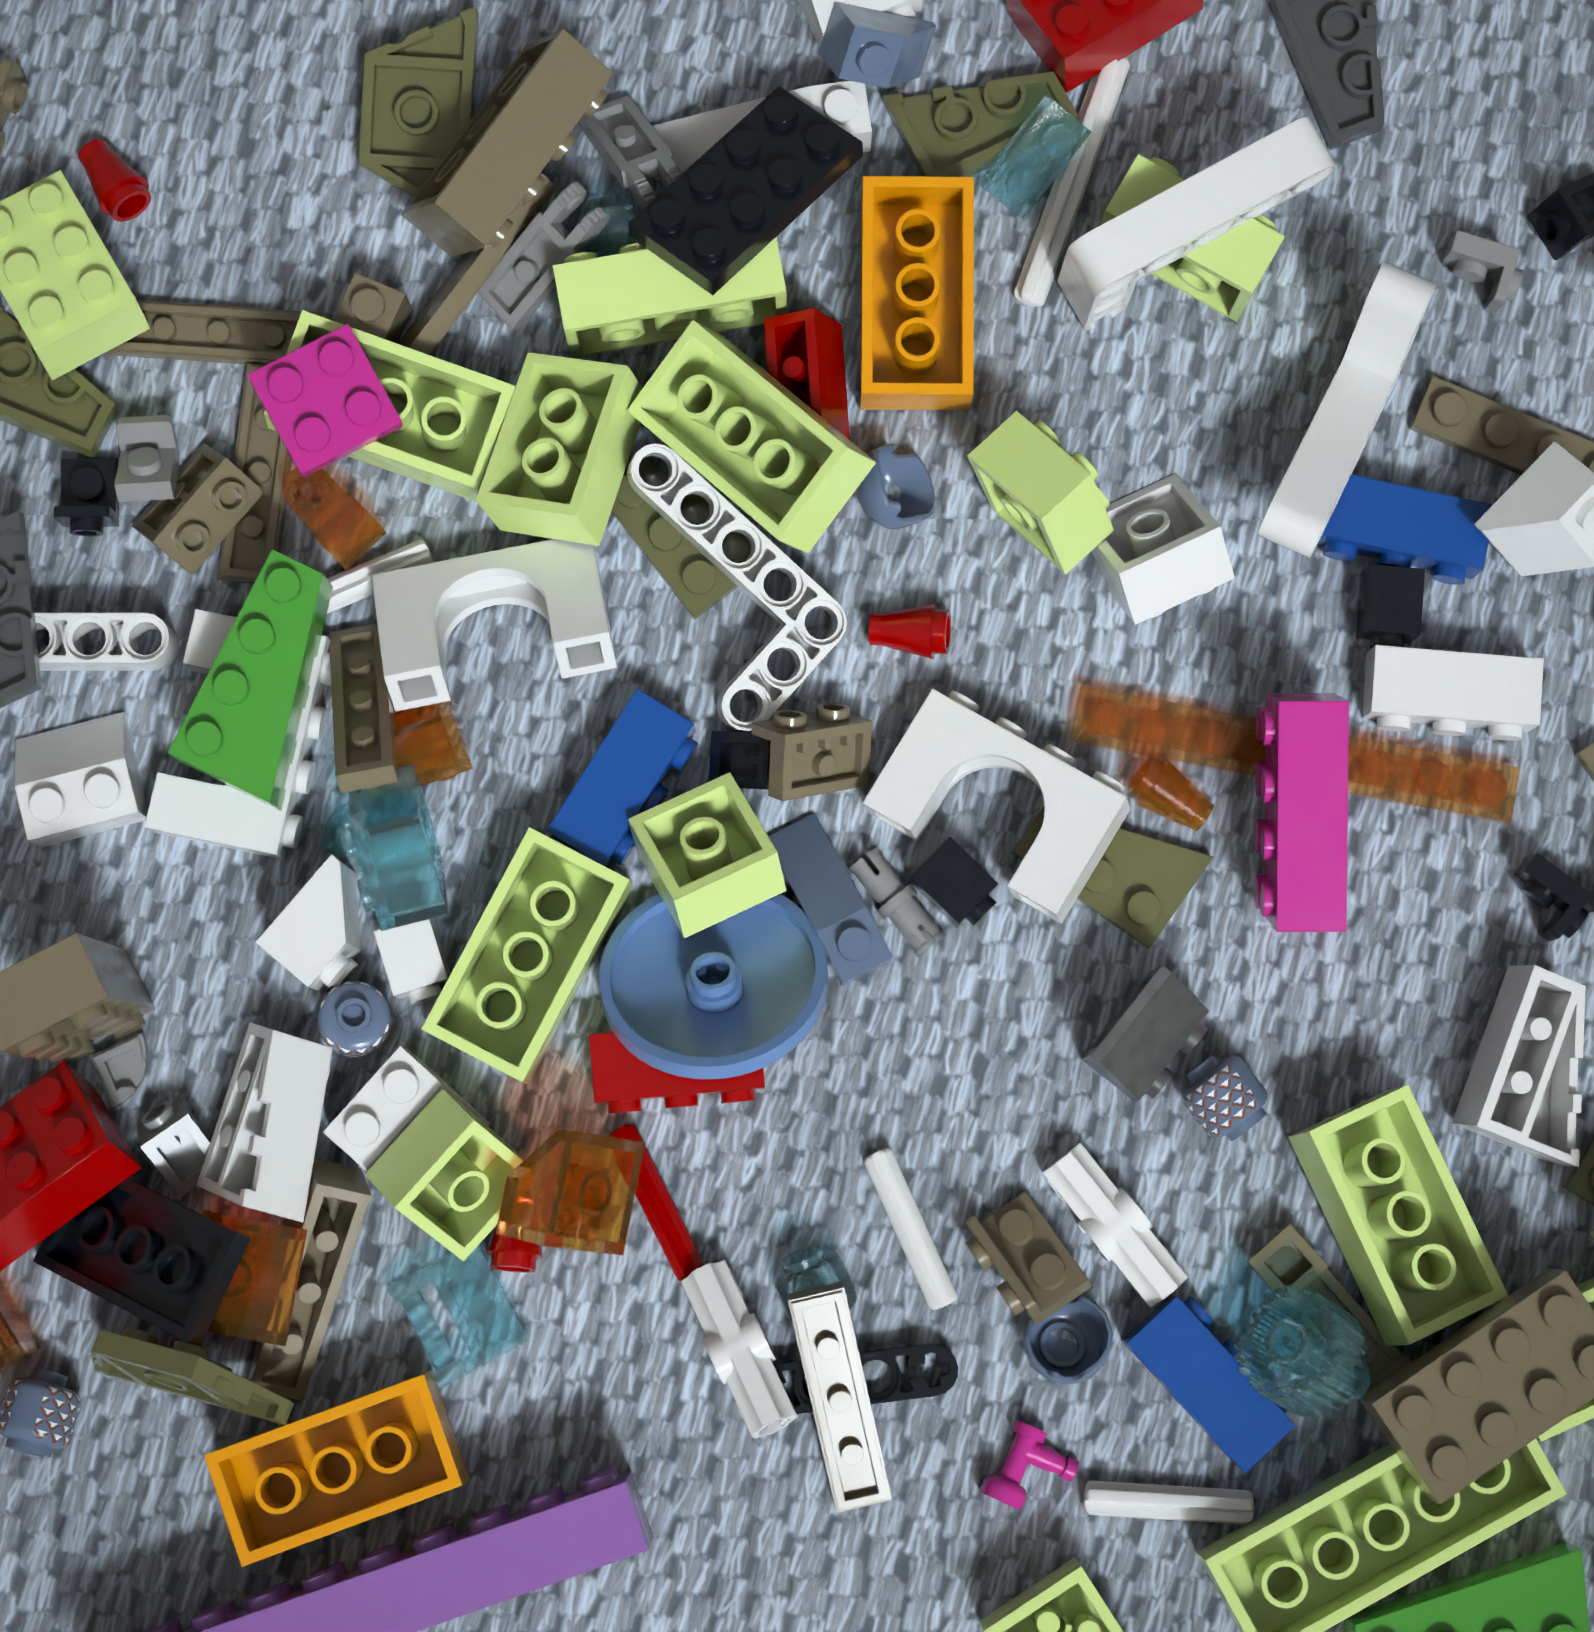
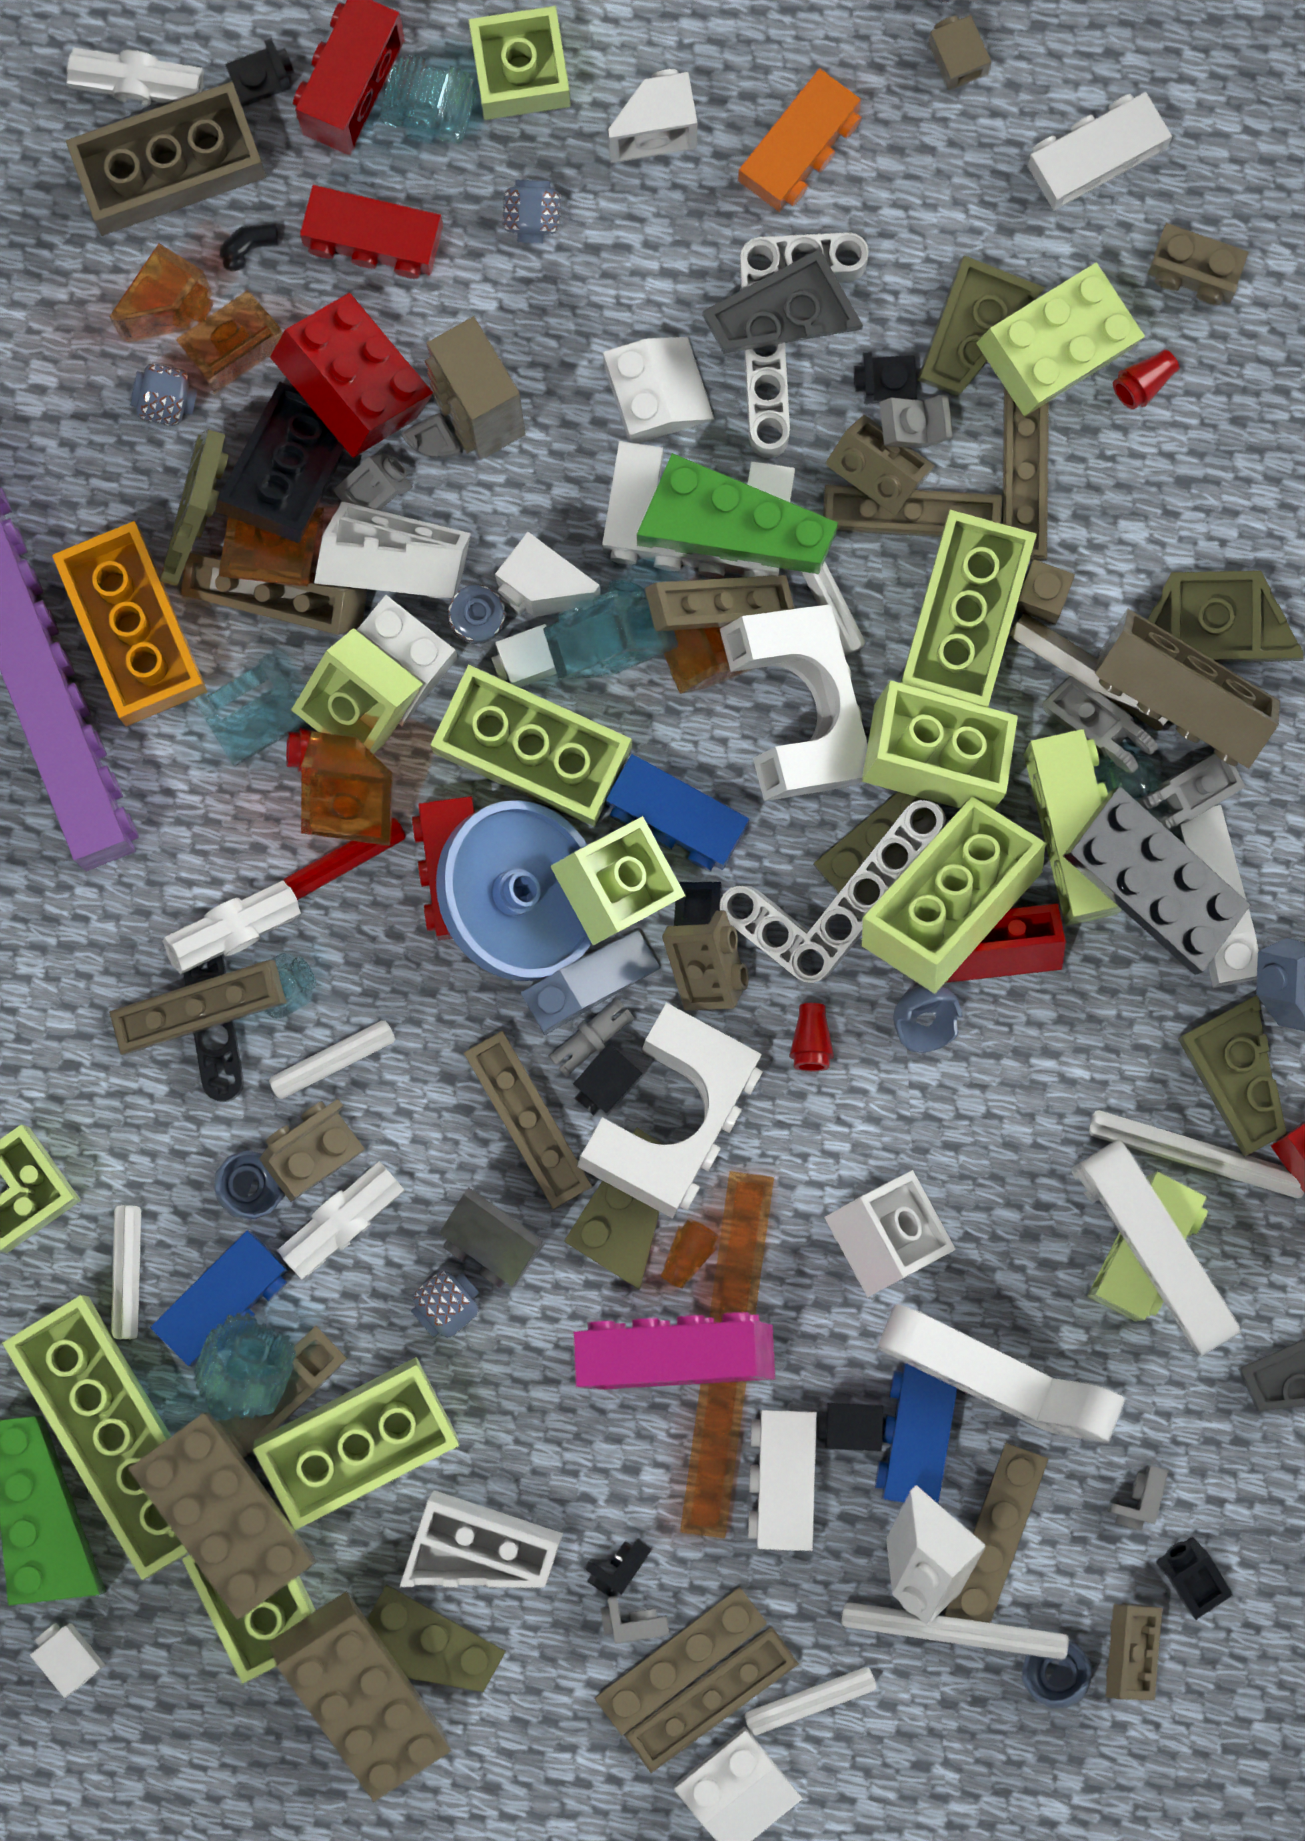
camera: 90 degrees right, 0 degrees up
(325, 400) = (962, 556): dark pink plate -> none
(336, 519) = (875, 575): clear orange piece -> none
(917, 293) = (1088, 1027): light orange brick -> none
(997, 985) = (527, 1120): none -> dark tan plate
(1025, 1450) = (163, 1158): dark pink piece -> none
(1034, 157) = (1210, 1119): clear light blue plate -> none
(1042, 490) = (927, 1135): yellowish green brick -> none

